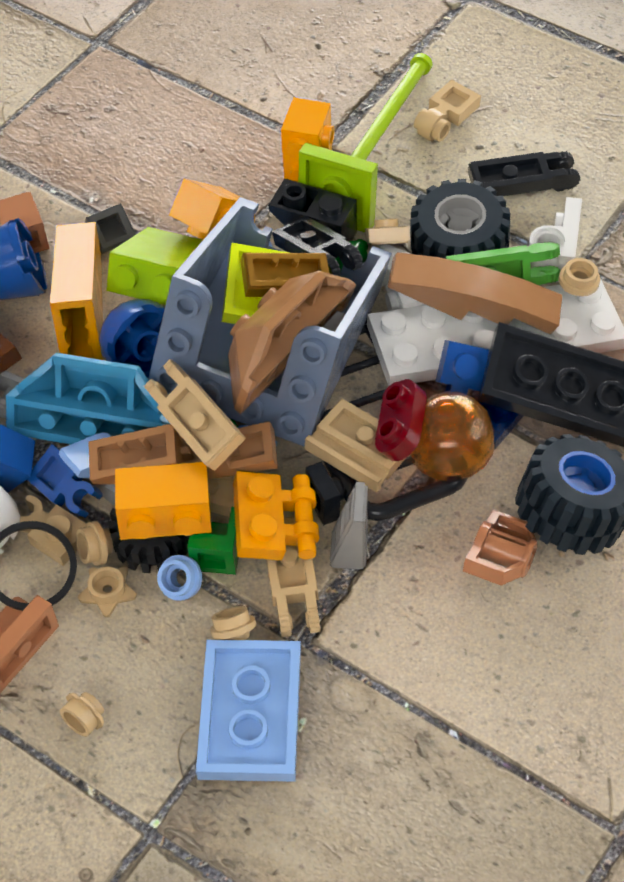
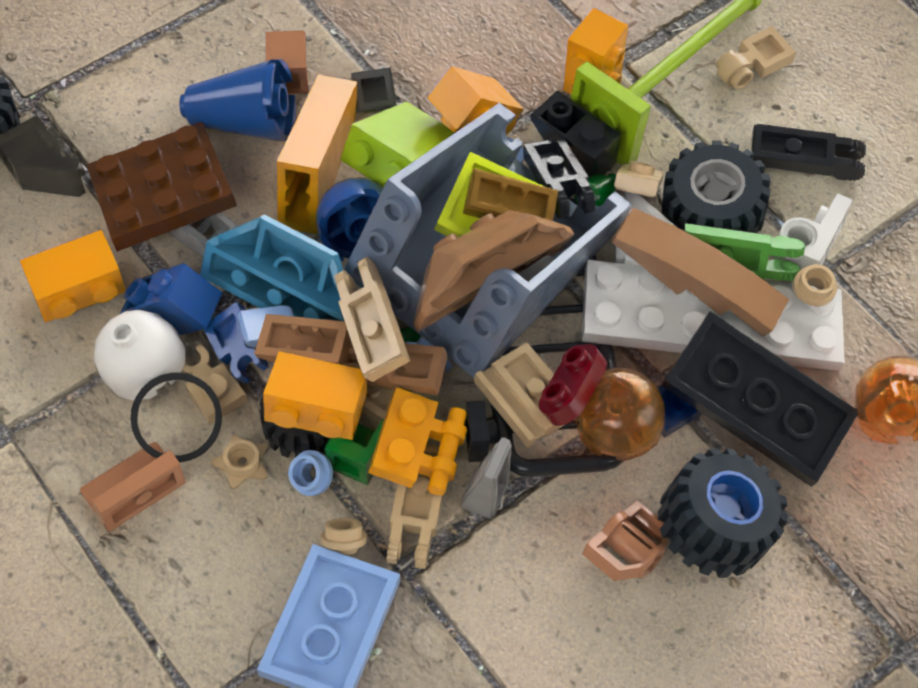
camera: 15 degrees right, 5 degrees up
(82, 713) = (176, 577): tan plate -> none
(94, 543) = (243, 413): tan plate -> none
(462, 367) = (658, 346): blue plate -> none

